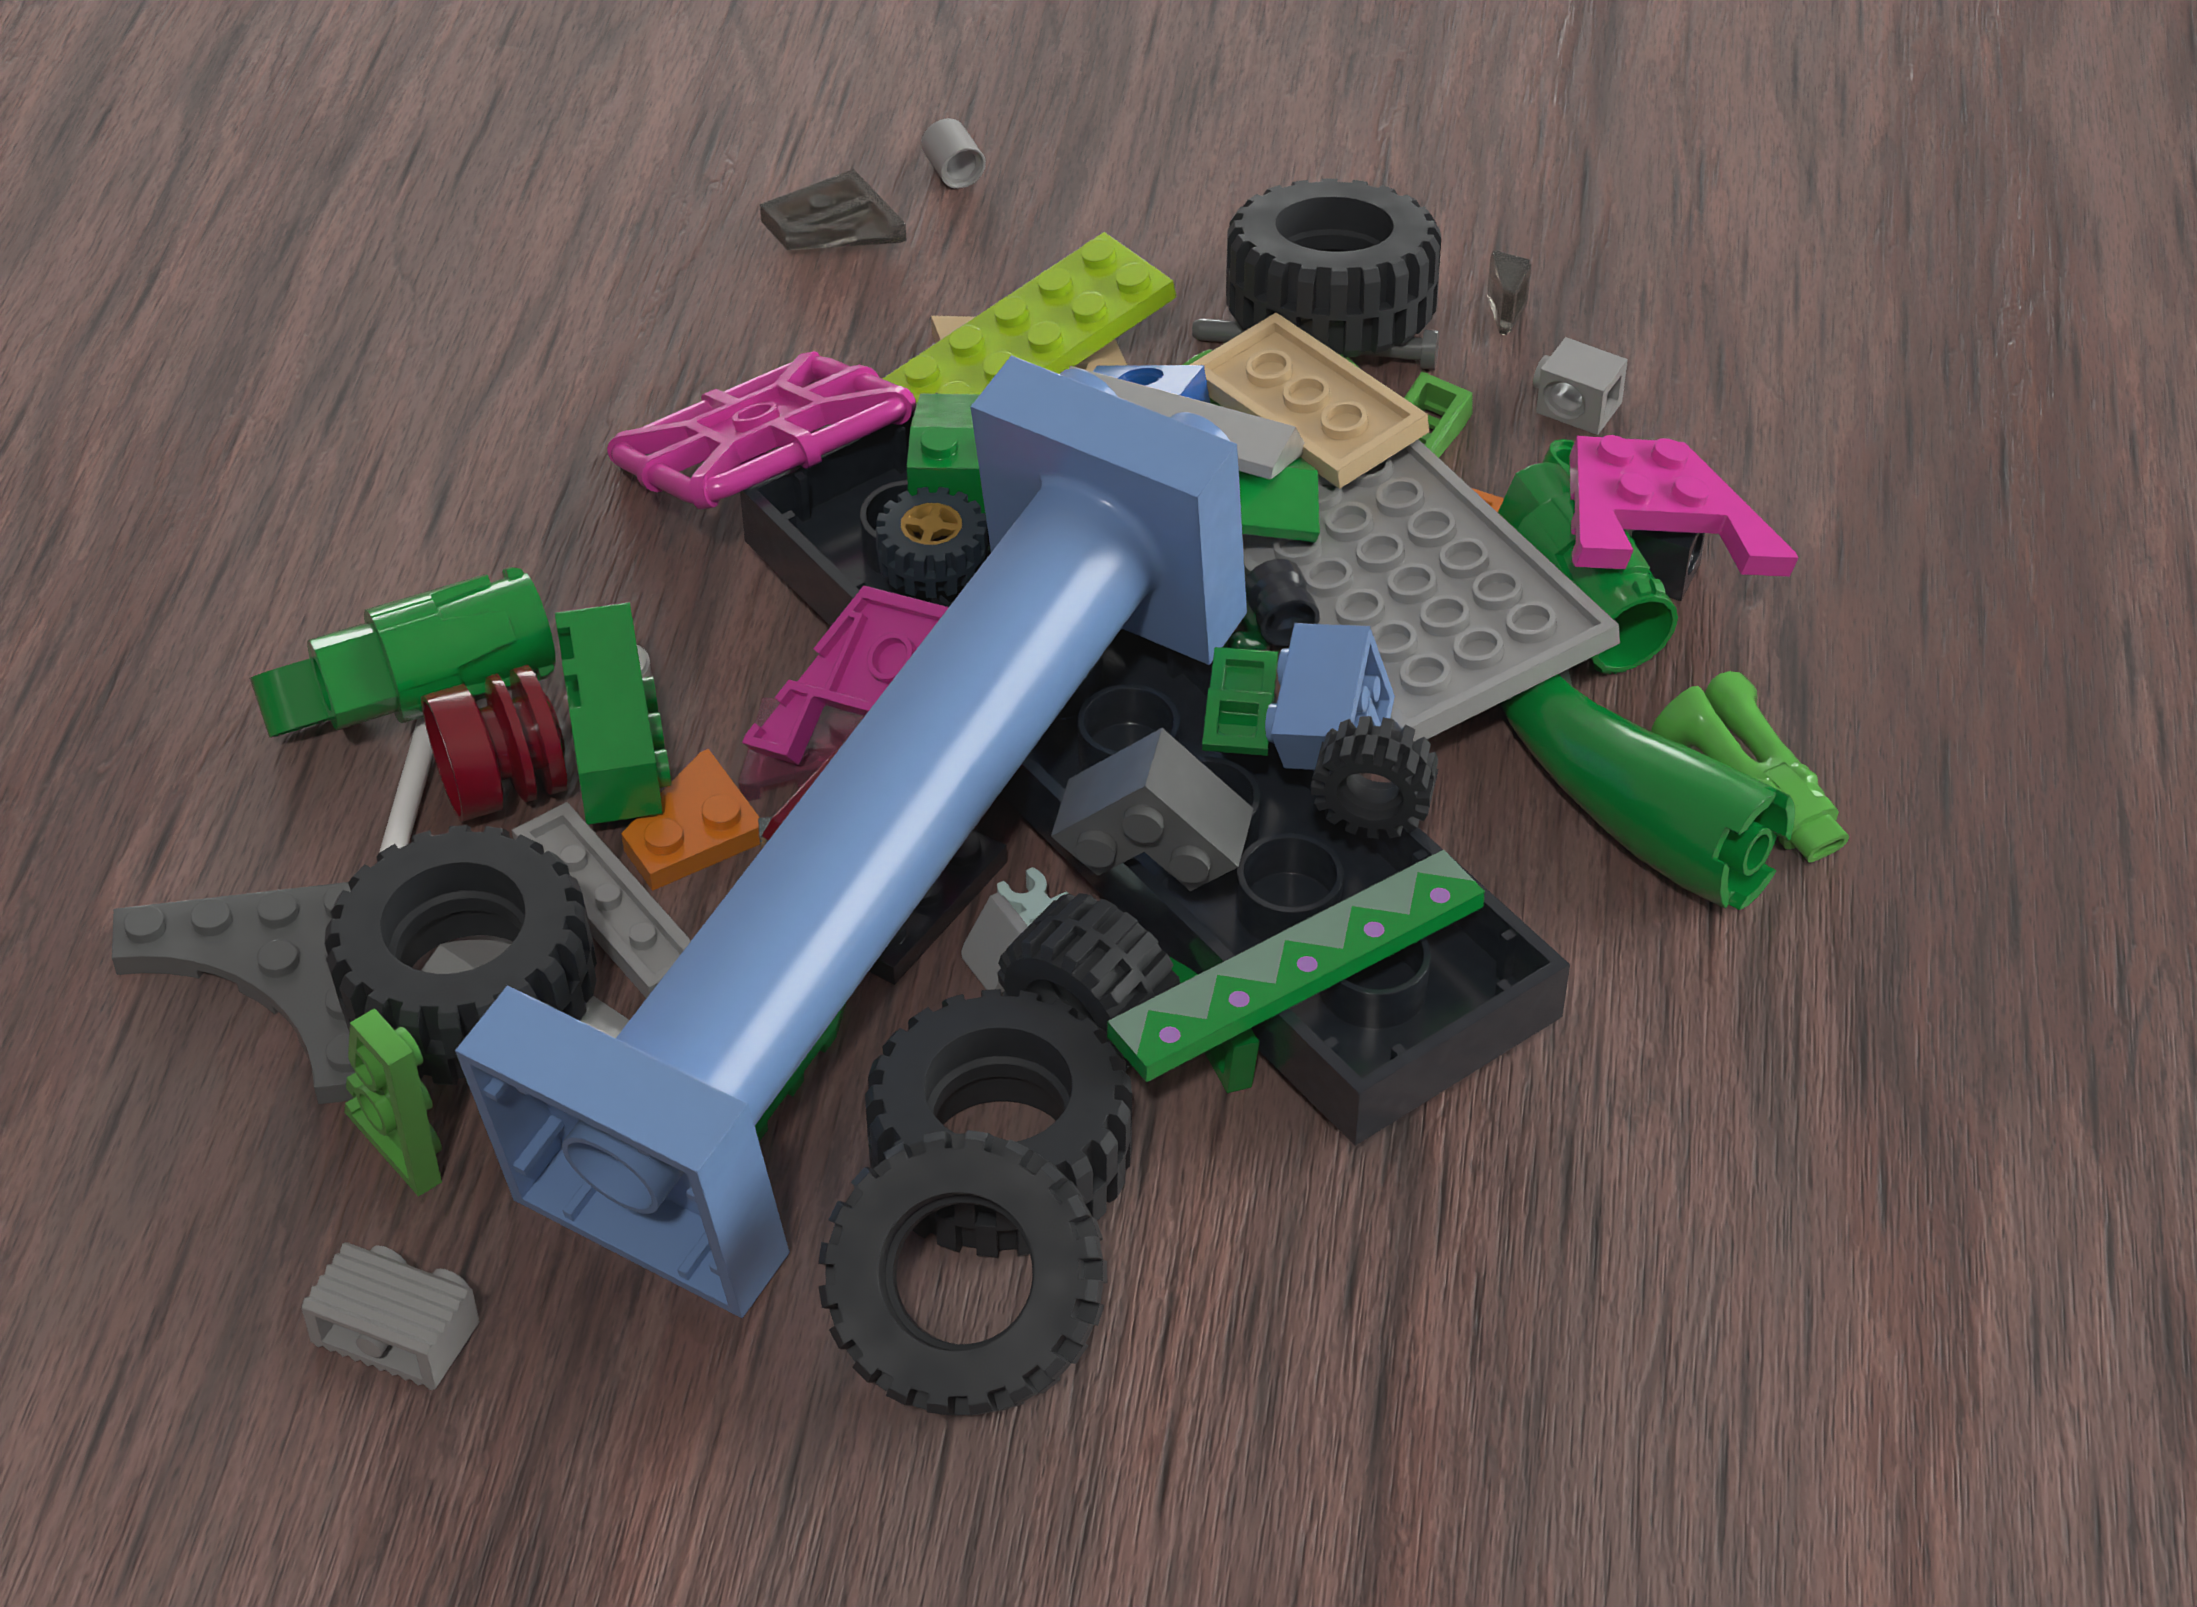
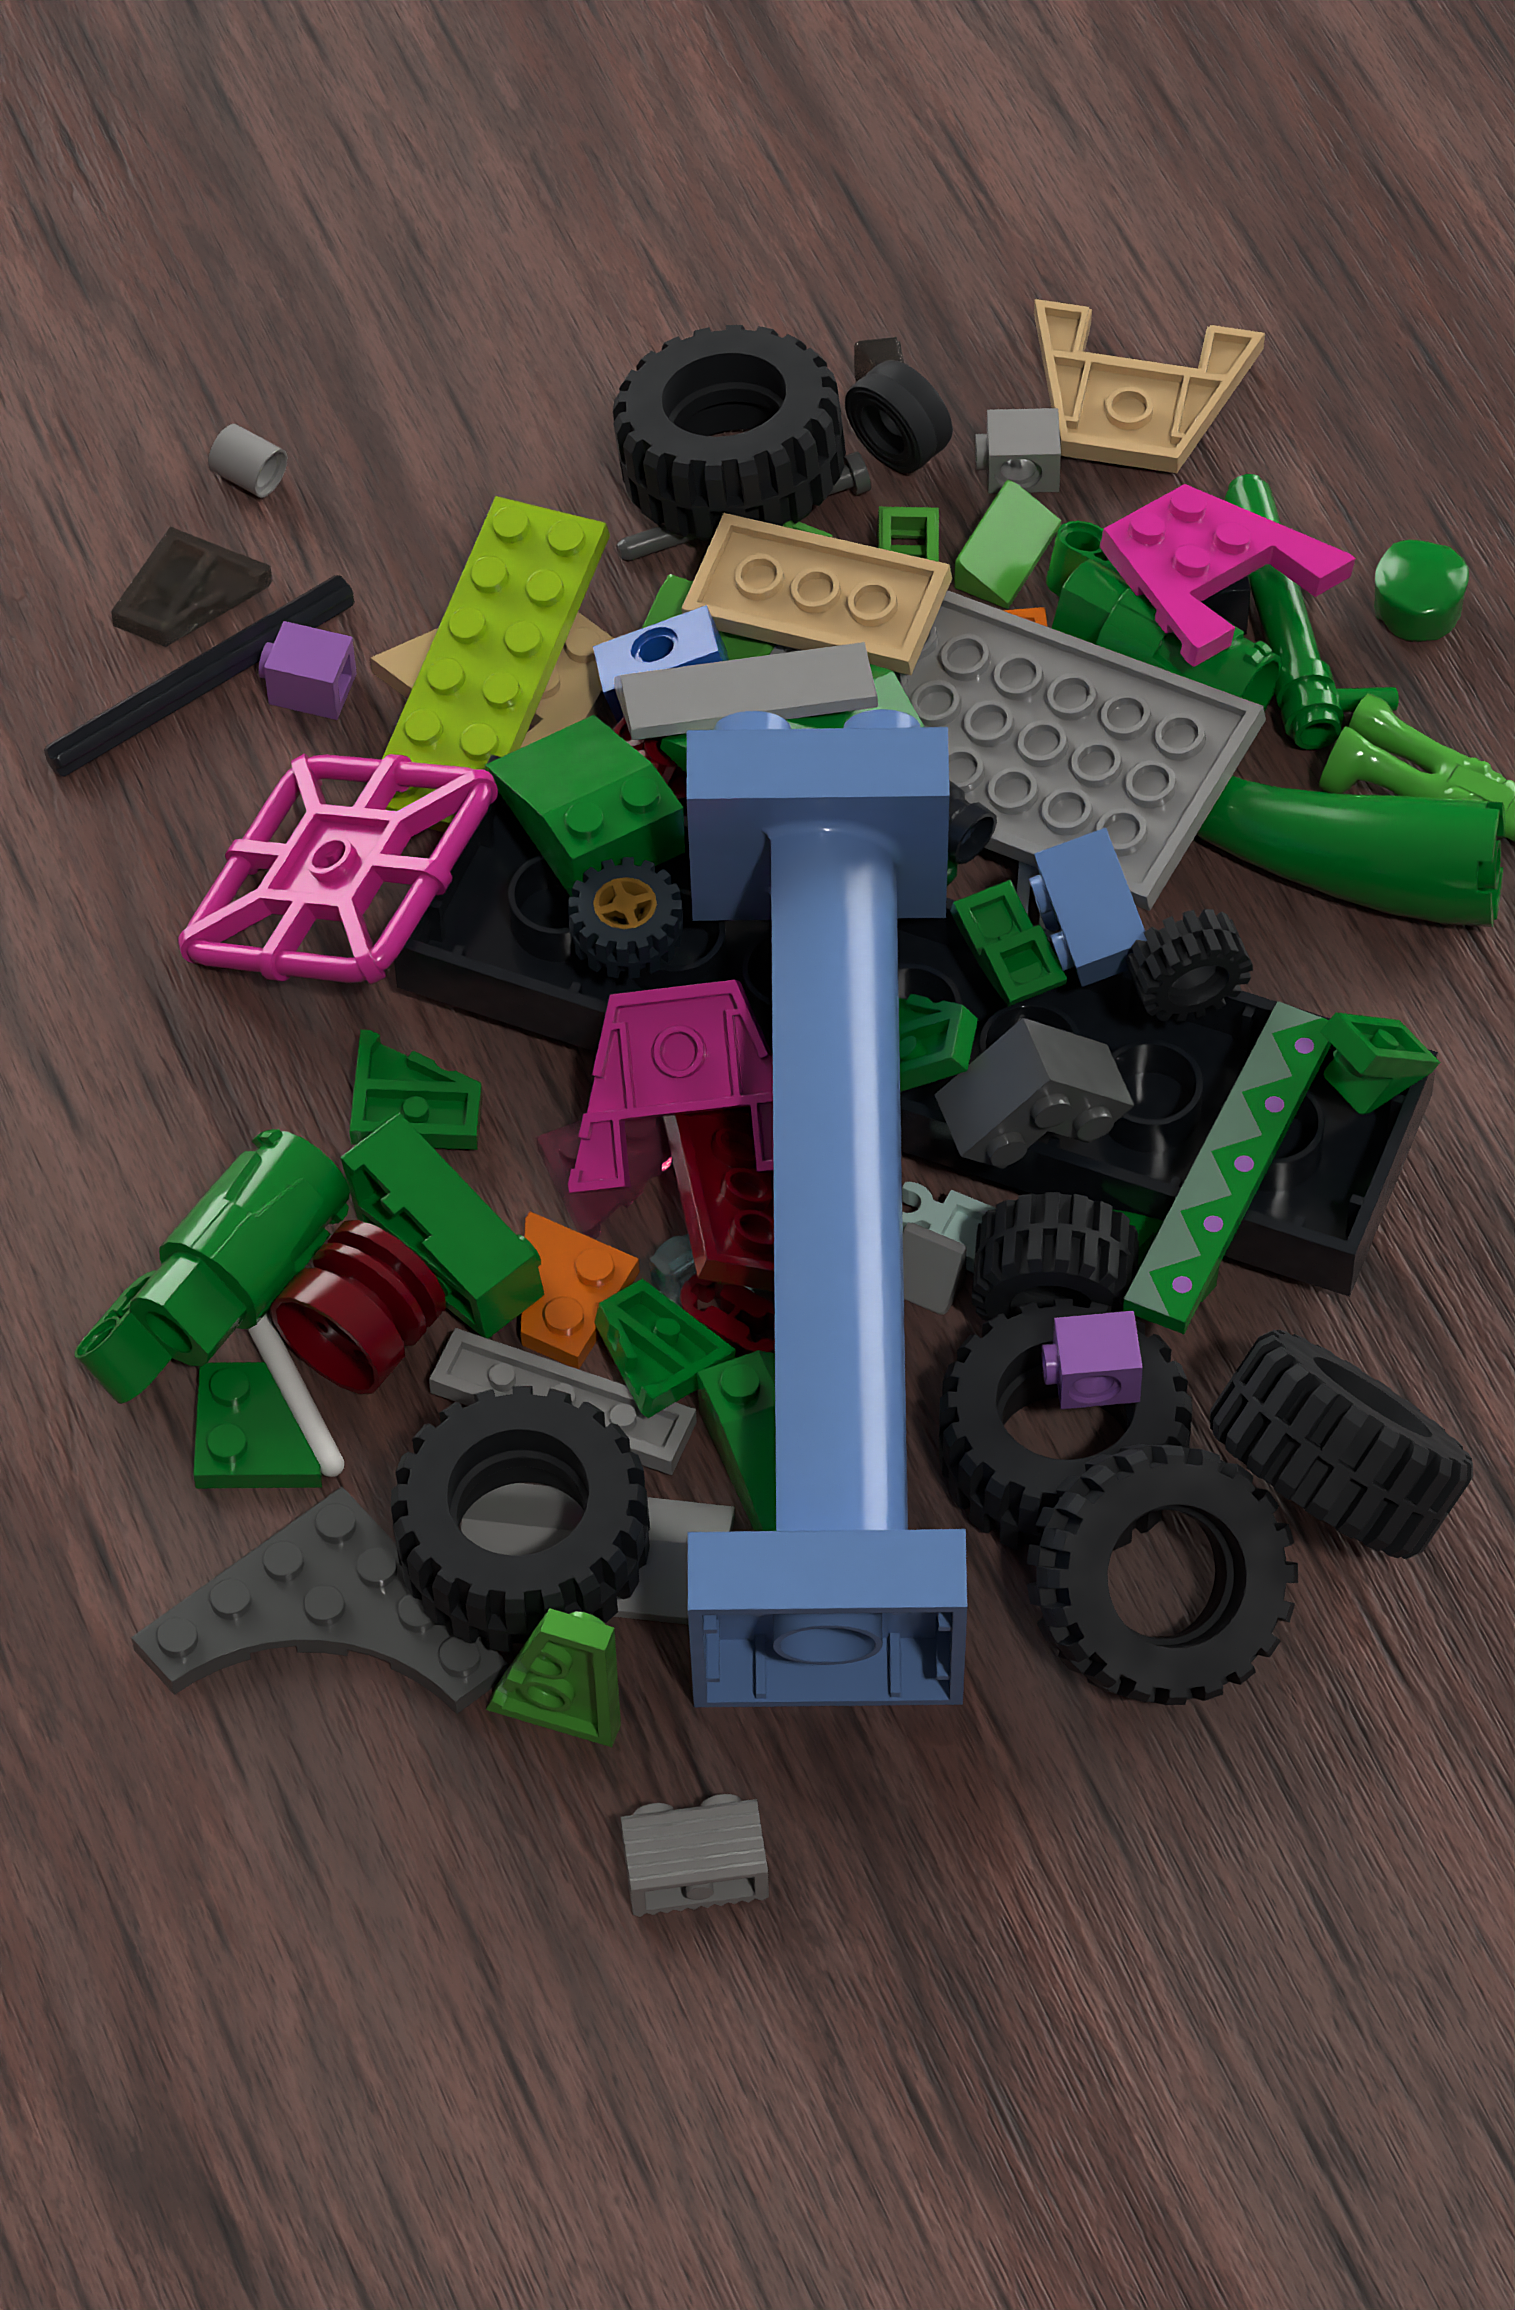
camera: 30 degrees left, 10 degrees up
(344, 805) = (248, 1432): none -> green wing
(690, 627) = (434, 1101): none -> green wing
(700, 884) = (657, 1345): none -> green wing
(794, 277) = (193, 678): none -> black axle
(875, 303) = (308, 670): none -> medium lavender brick
(1037, 1056) = (1094, 1360): none -> medium lavender brick
(1084, 732) = (933, 1040): none -> green wing
(1212, 1244) = (1340, 1444): none -> black tyre
(1488, 315) = (898, 416): none -> black tyre
(1496, 931) = (1374, 1059): none -> green slope
(1507, 443) = (1005, 546): none -> bright green slope
(1698, 644) = (1305, 686): none -> green cylinder
(1710, 398) = (1133, 407): none -> tan wing
(1857, 624) = (1420, 589): none -> green hair

